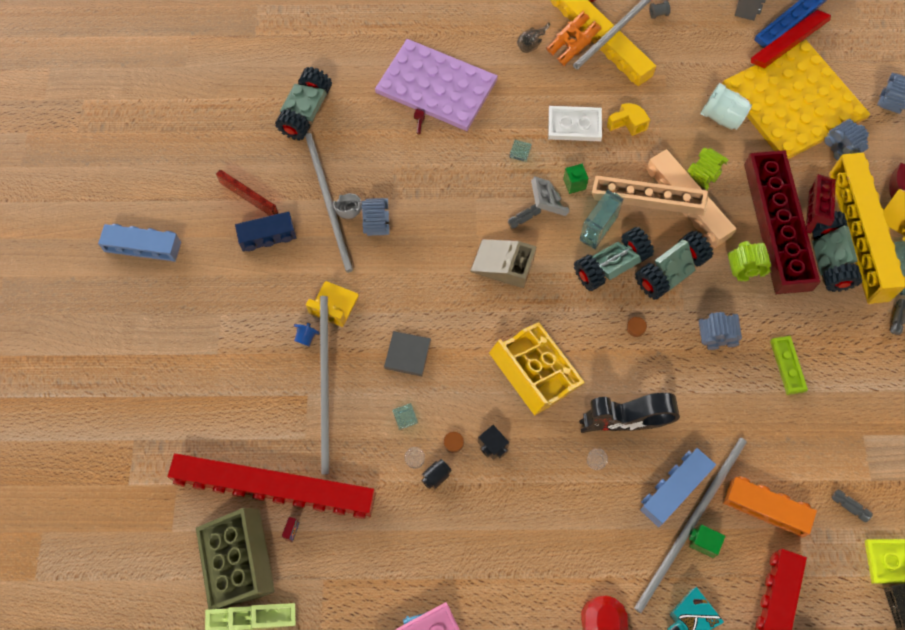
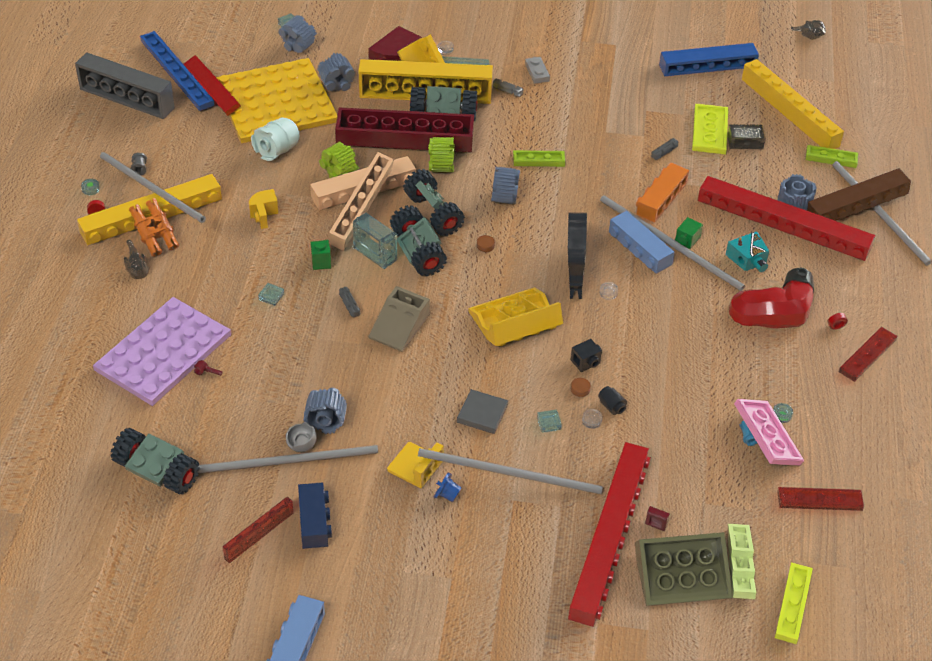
camera: 85 degrees left, 20 degrees down
(546, 196) = (332, 279): light grey wing -> none
(575, 123) = (253, 247): white plate -> none
(821, 202) = (398, 93): dark red fence -> none

